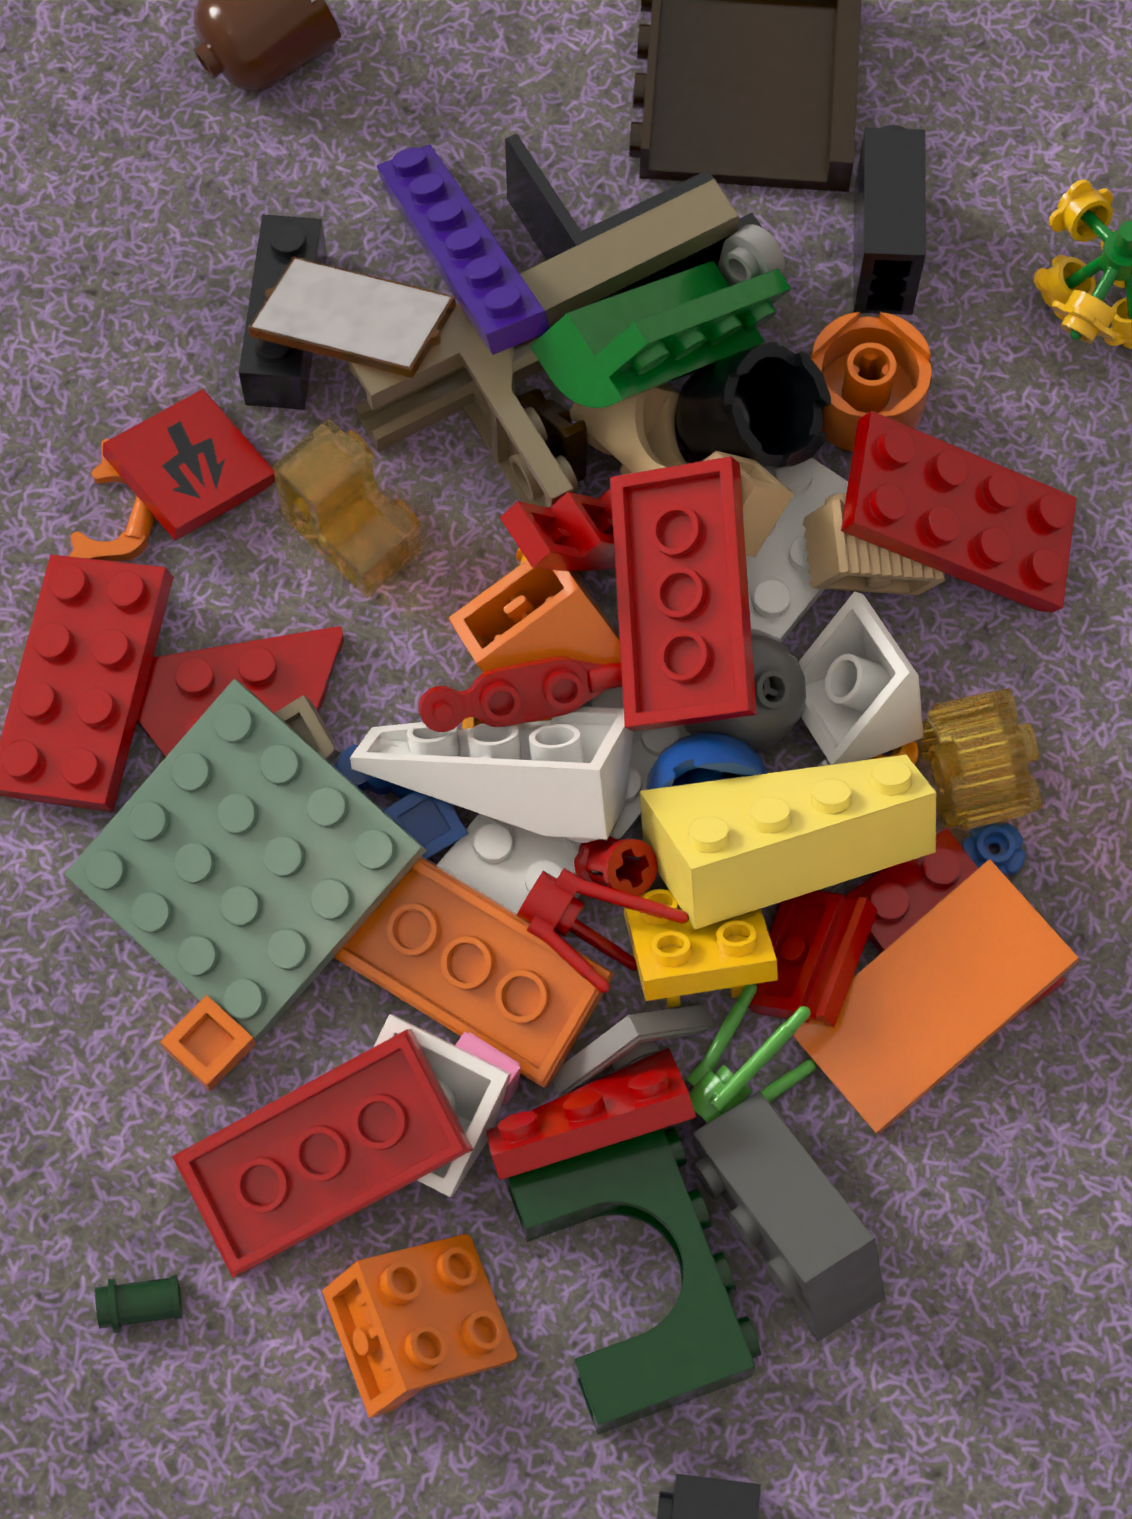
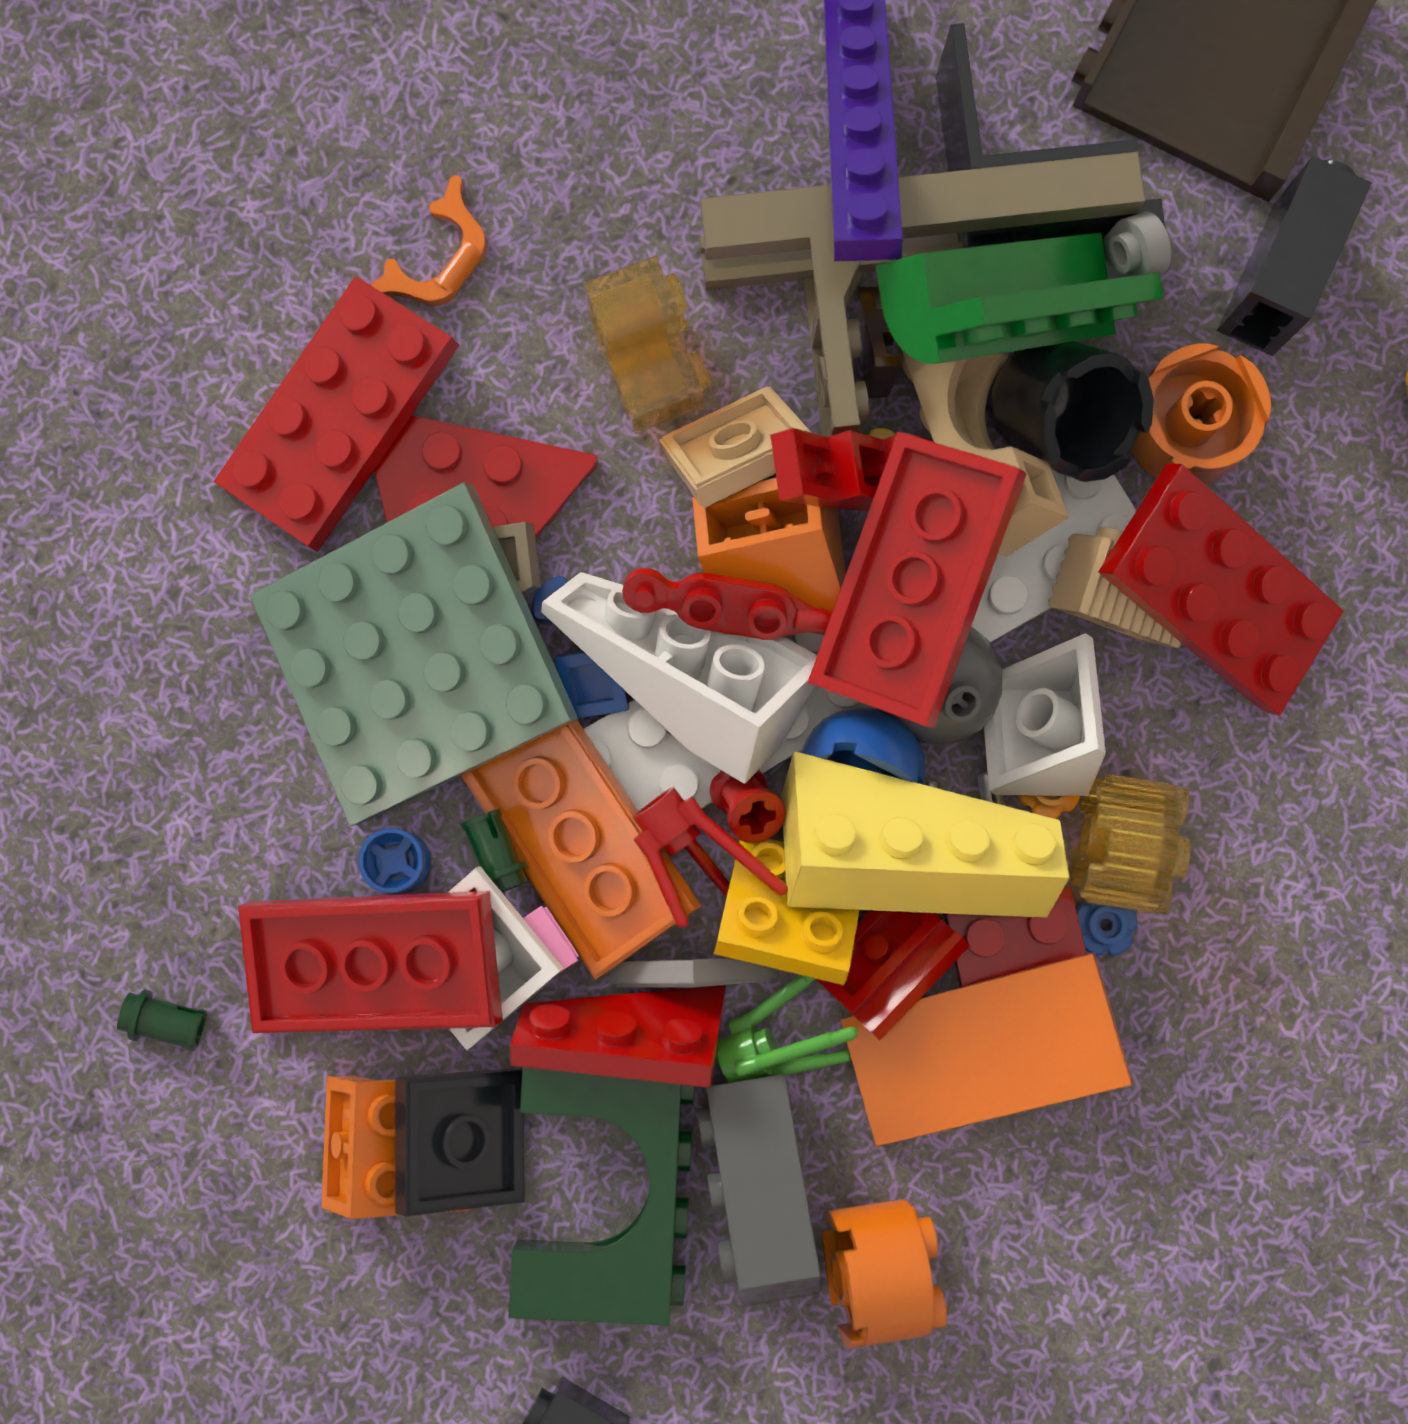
camera: 20 degrees right, 15 degrees up
(188, 464) = (521, 233): red tile -> none
(208, 1043) = (314, 809): orange plate -> none
(267, 370) = (670, 113): black brick -> none
(305, 1044) = (385, 857): none -> blue wheel
(353, 317) = (723, 157): flat silver piece -> none
(390, 996) = (495, 850): none -> dark green pin
(461, 566) = (729, 446): none -> tan tile
(478, 1285) = (458, 1141): none -> black tile
(934, 1234) = (882, 1272): none -> orange brick

